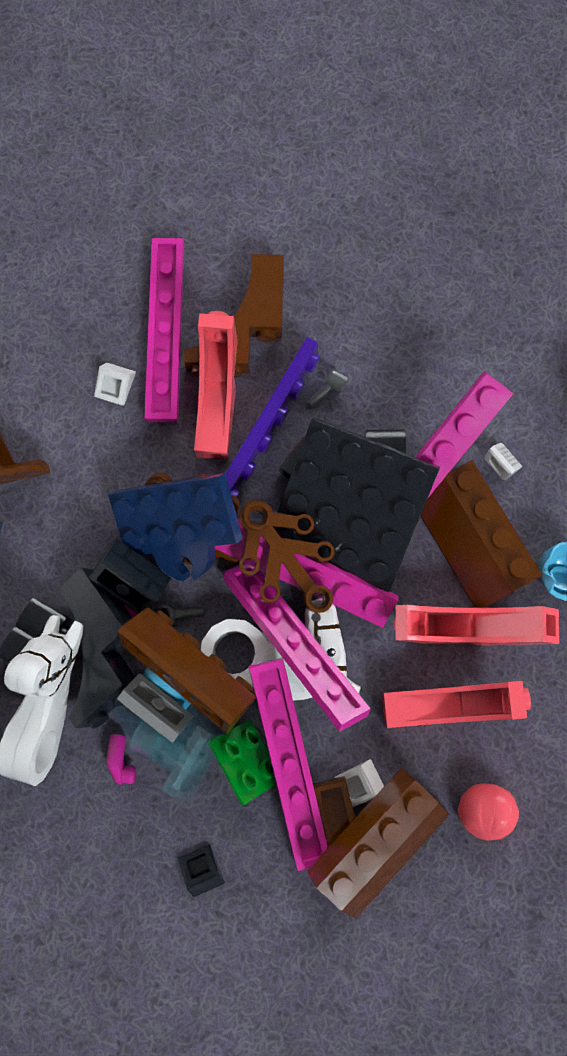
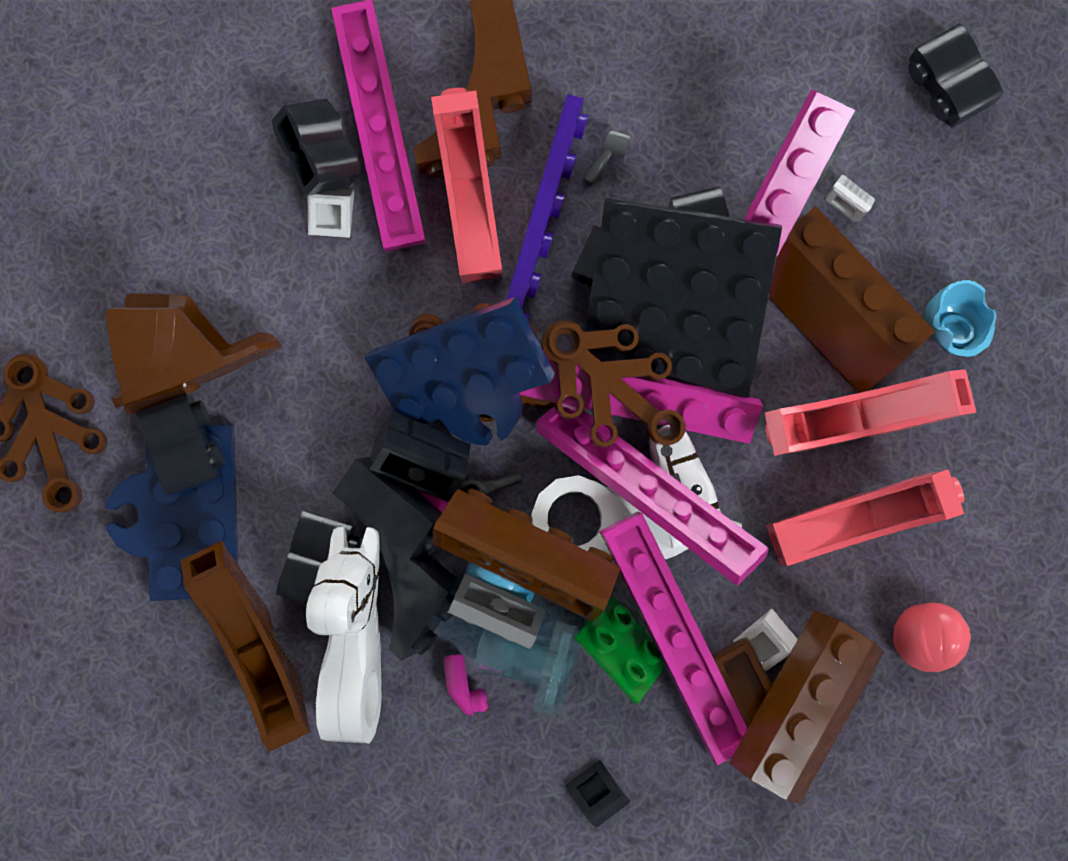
camera: 20 degrees left, 5 degrees up
(114, 334) = (316, 146): none -> black brick

